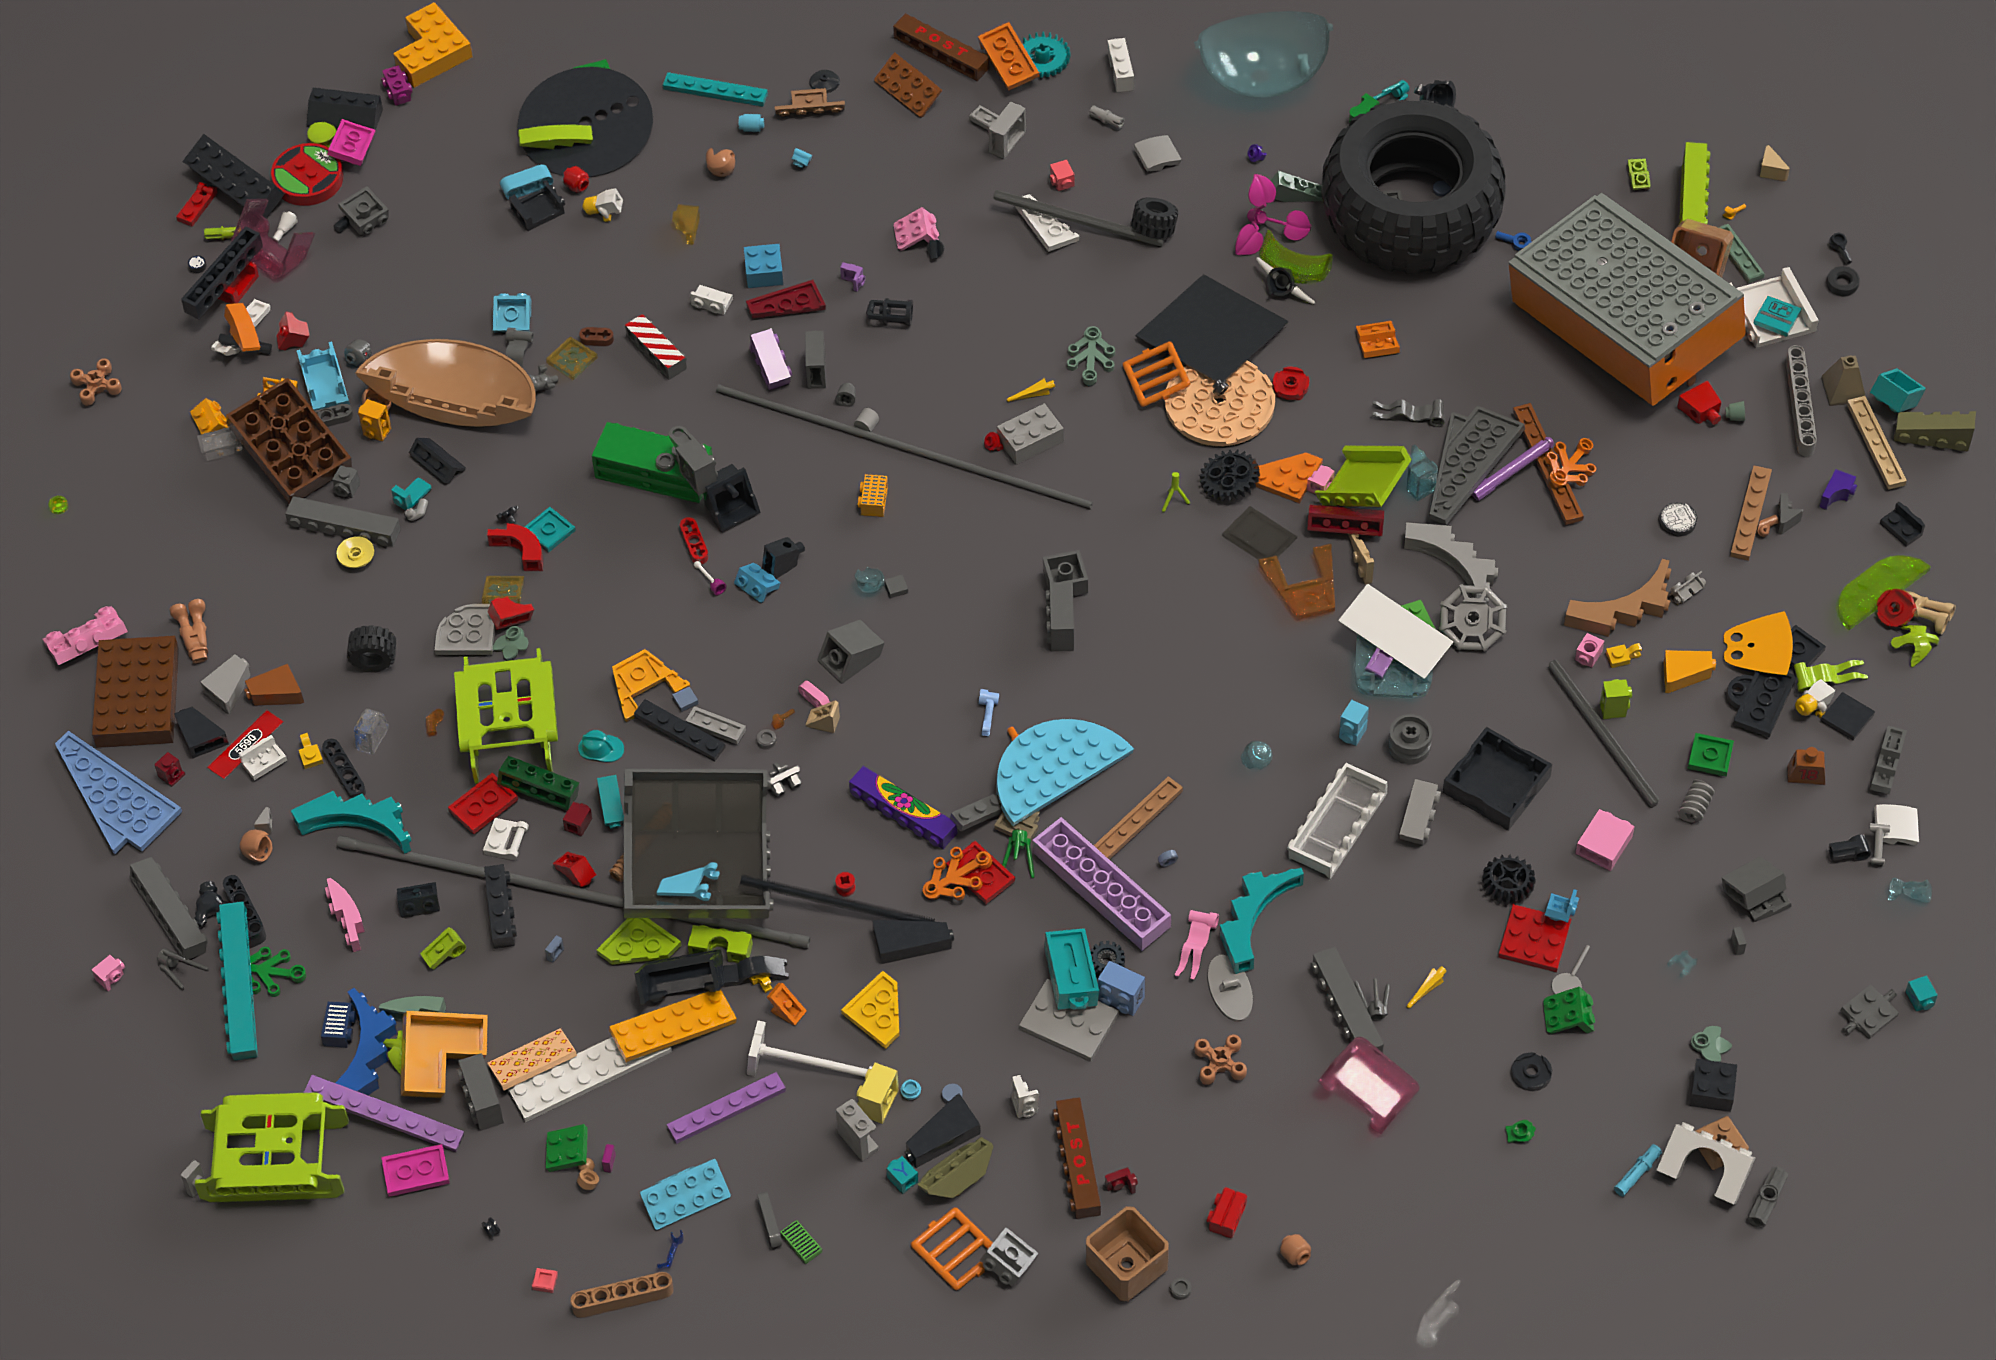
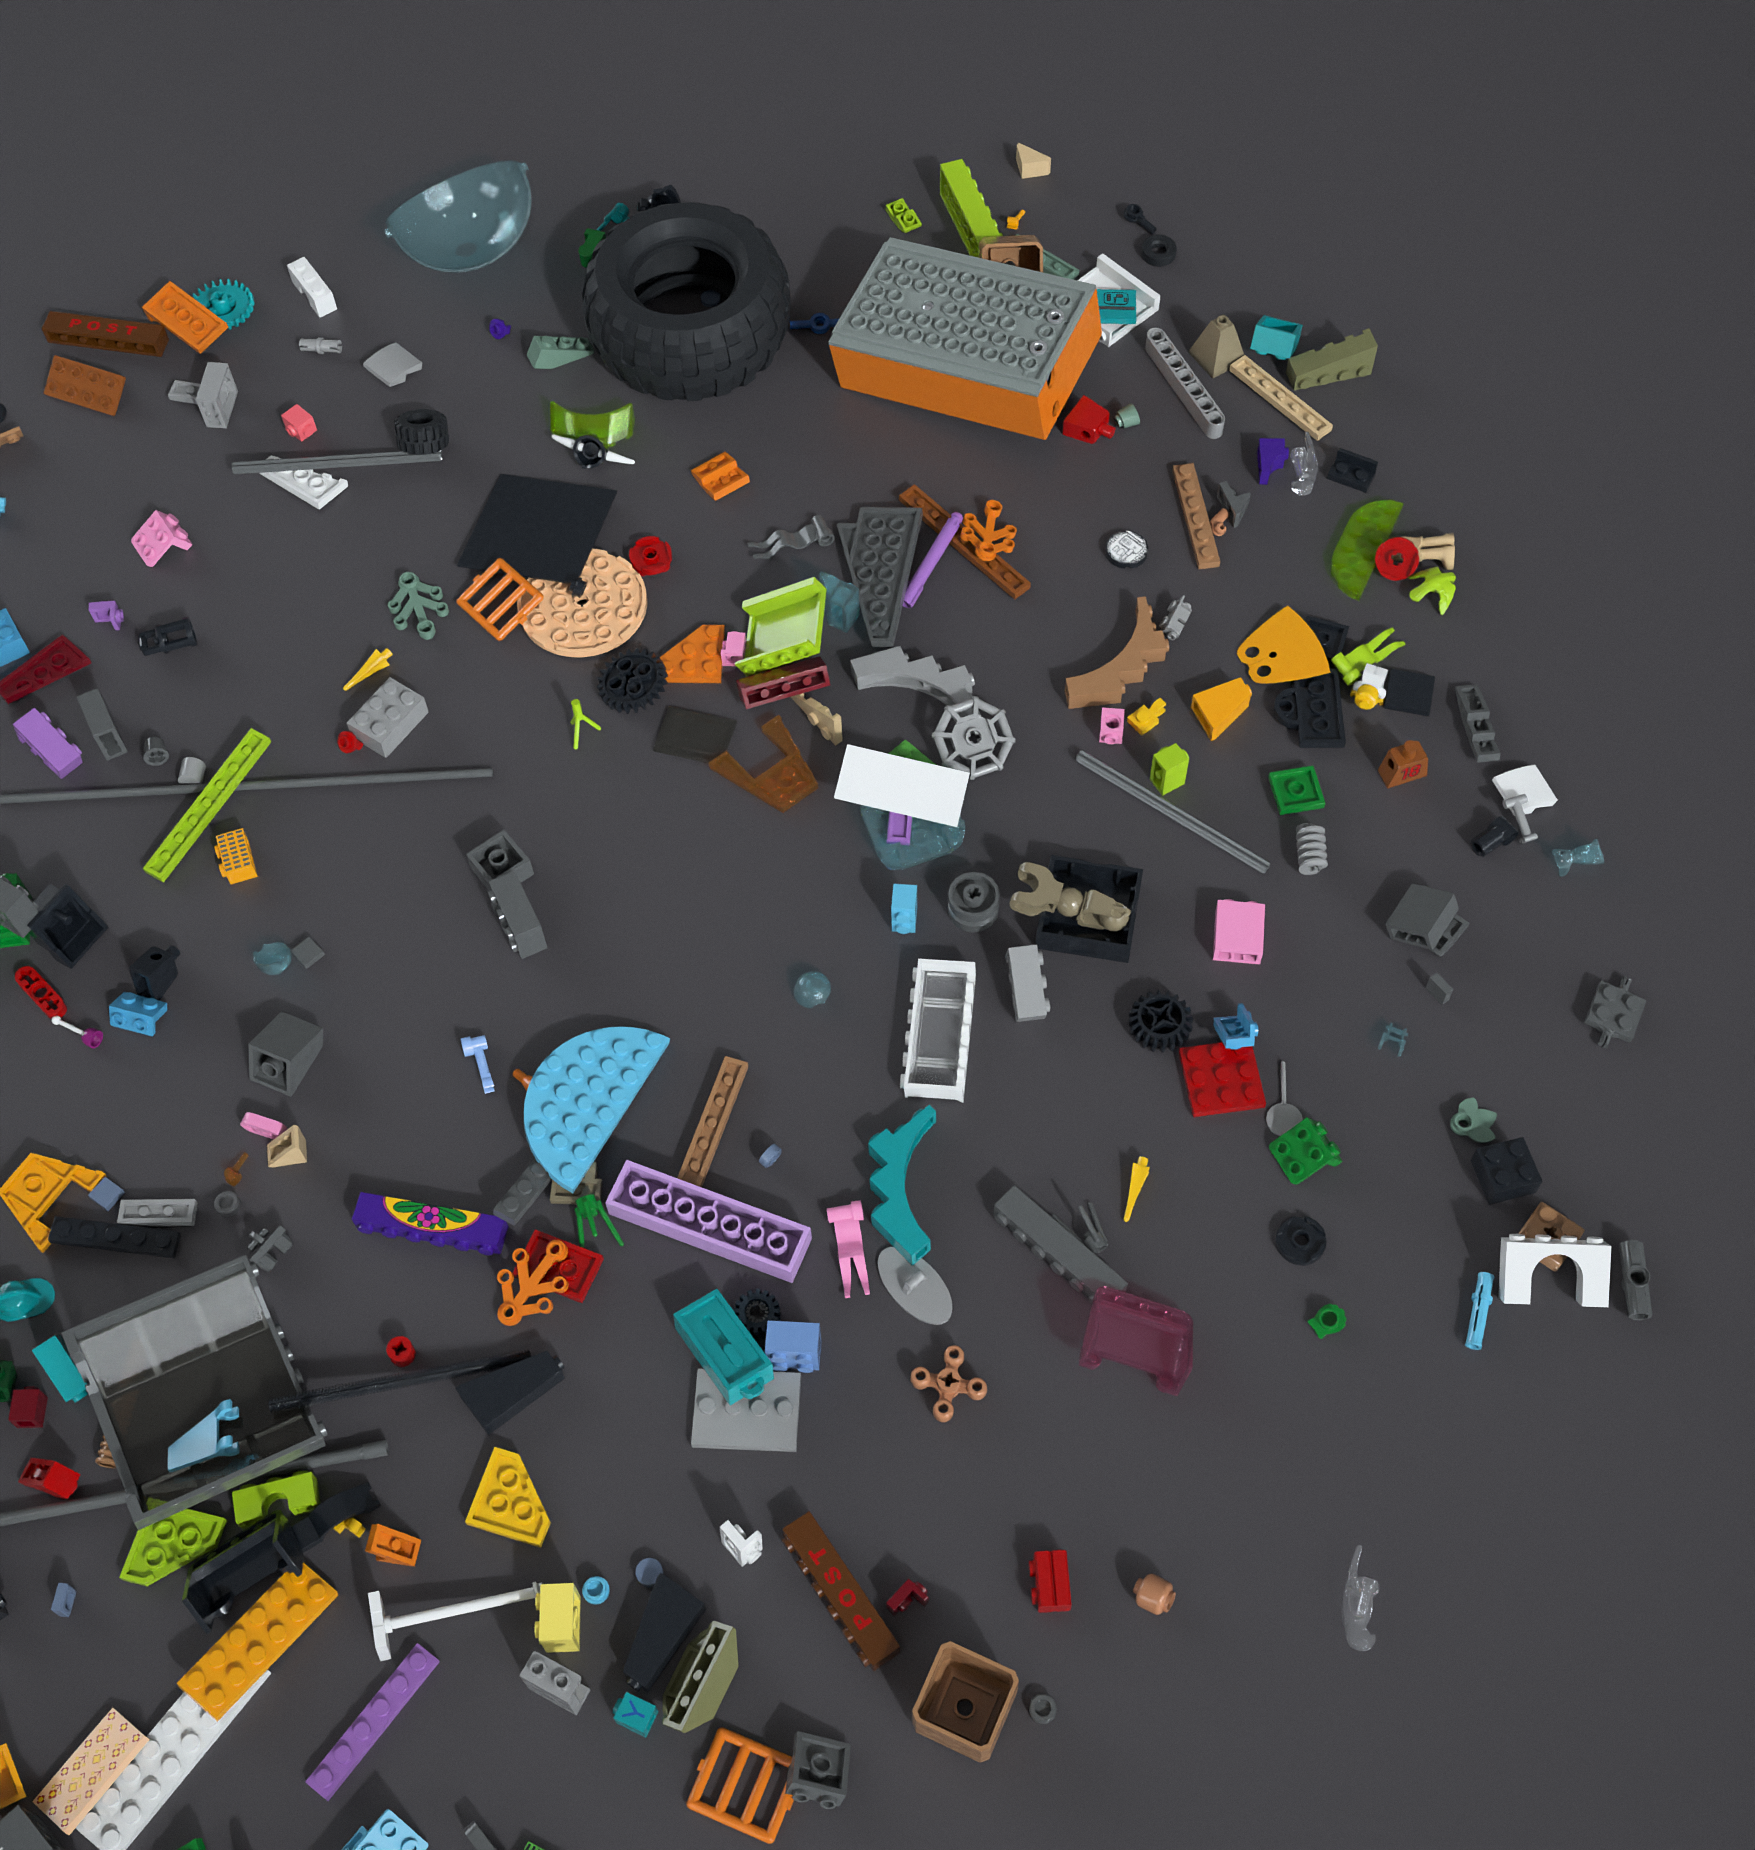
camera: 25 degrees left, 5 degrees up
(868, 449) = (207, 805): none -> lime plate
(935, 248) = (190, 550): black plate -> none
(1262, 192) = (528, 363): dark pink plant -> none
(1496, 776) = (1092, 909): none -> dark tan piece
(1863, 507) = (1305, 467): none -> clear animal
(1921, 993) = (1658, 968): teal brick -> none

